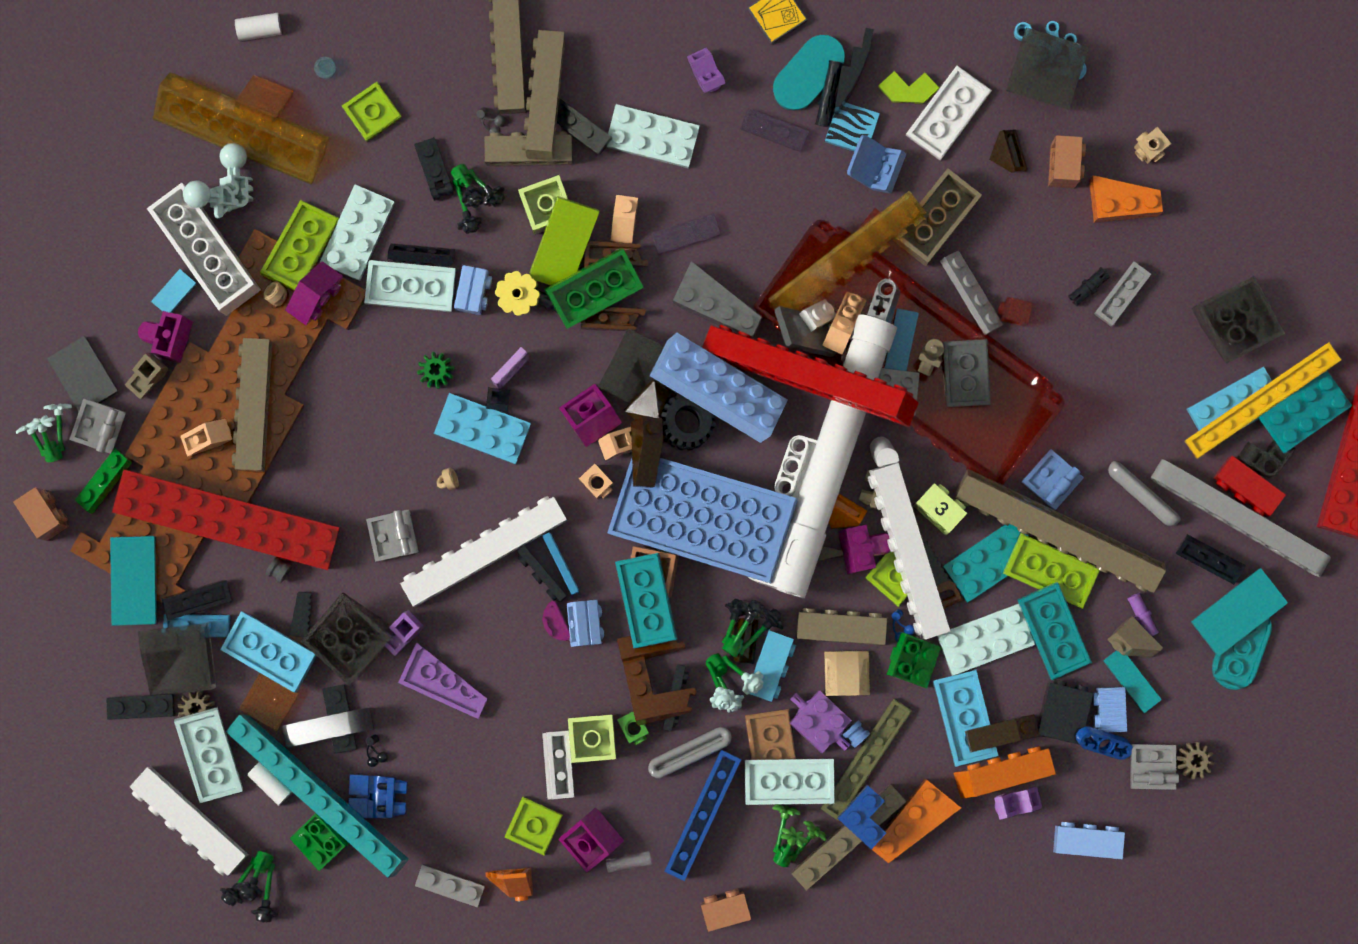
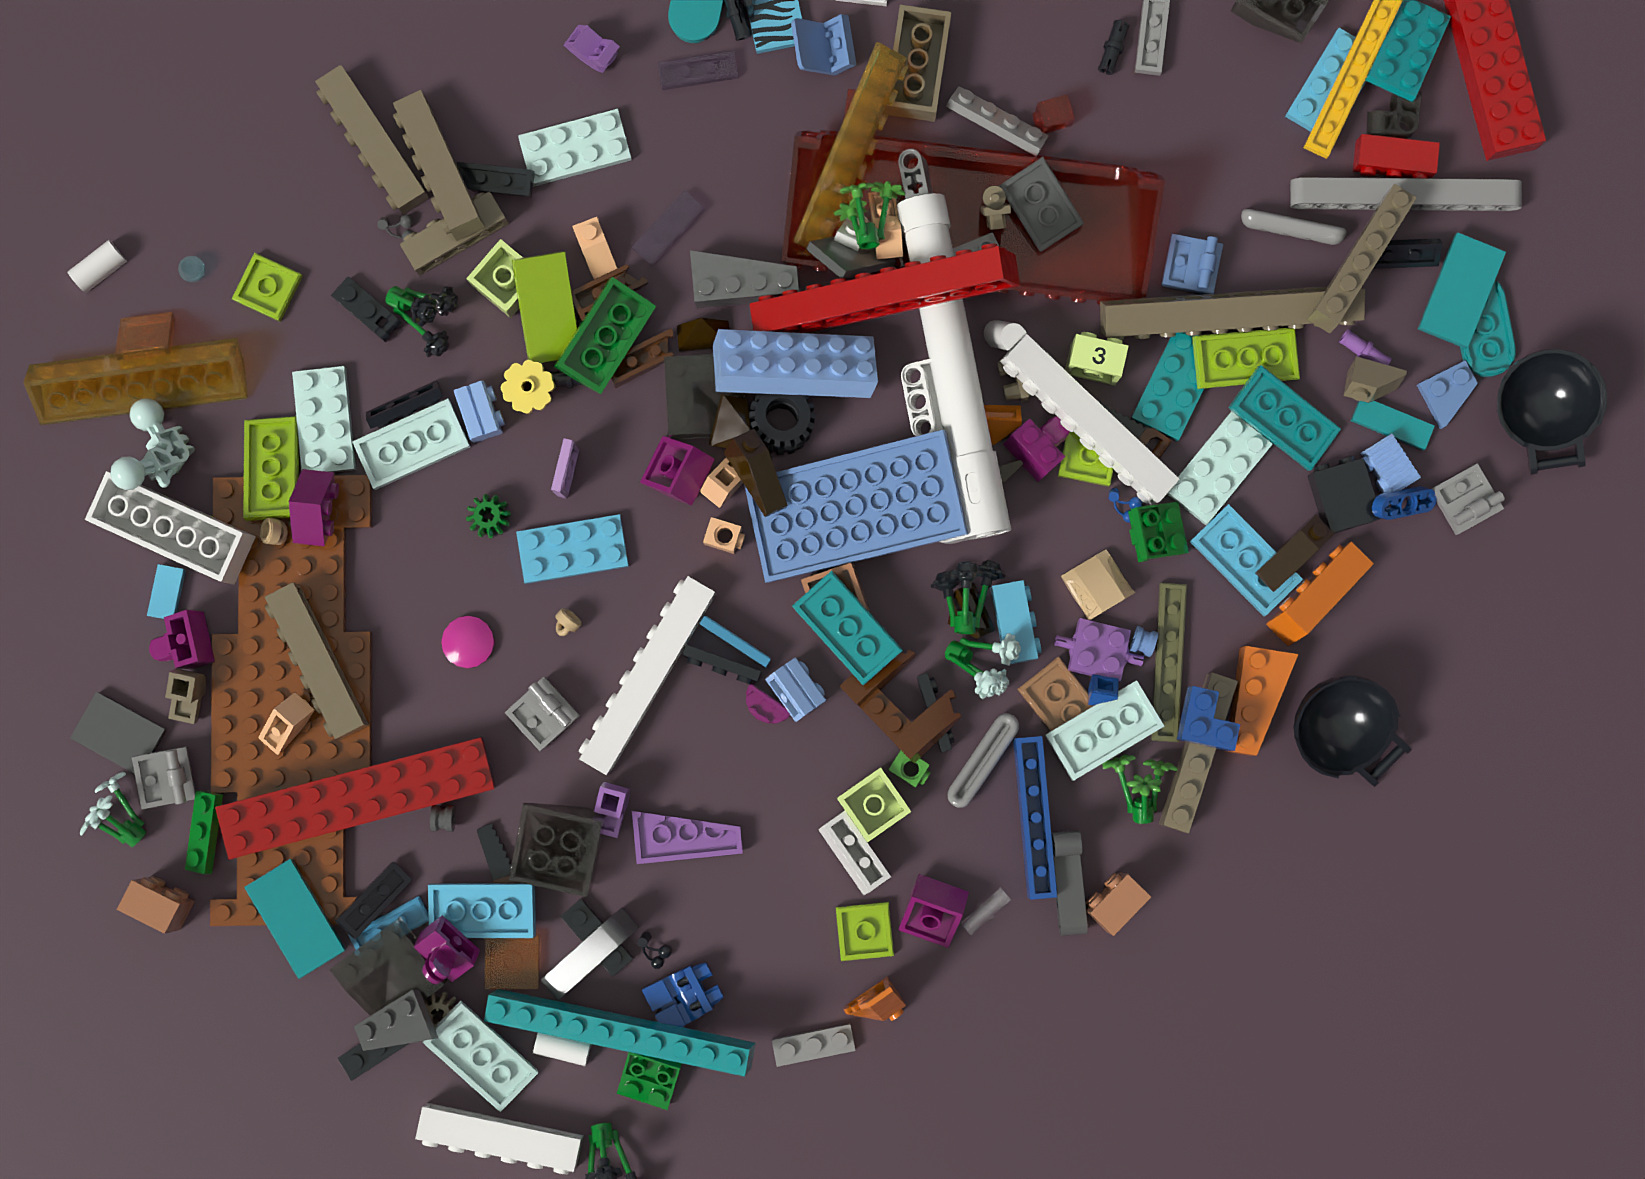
camera: 30 degrees left, 0 degrees up
(164, 698) = (397, 1024): none -> dark grey wing
(227, 666) = (446, 951): none -> magenta brick
(368, 452) = (467, 642): none -> dark pink dish
(497, 399) = (571, 509): black plate -> none
(665, 325) = (699, 333): none -> dark brown slope
(700, 876) = (1069, 882): none -> dark grey beam
(805, 751) = (1102, 689): none -> blue slope
(823, 325) = (866, 233): none -> plant
(841, 628) = (1064, 541): dark tan brick -> none
(901, 347) = (959, 216): dark azure tile -> none
(965, 881) = (1348, 727): none -> black windscreen
(1017, 802) = (1351, 615): medium lavender brick -> none
(1089, 841) = (1446, 613): light blue brick -> none
(1175, 547) = (1362, 258): none -> dark tan brick
(1186, 680) = (1447, 392): none -> medium blue wing
(1188, 757) = (1496, 467): dark tan gear -> none
(1251, 732) = (1551, 404): none -> black windscreen

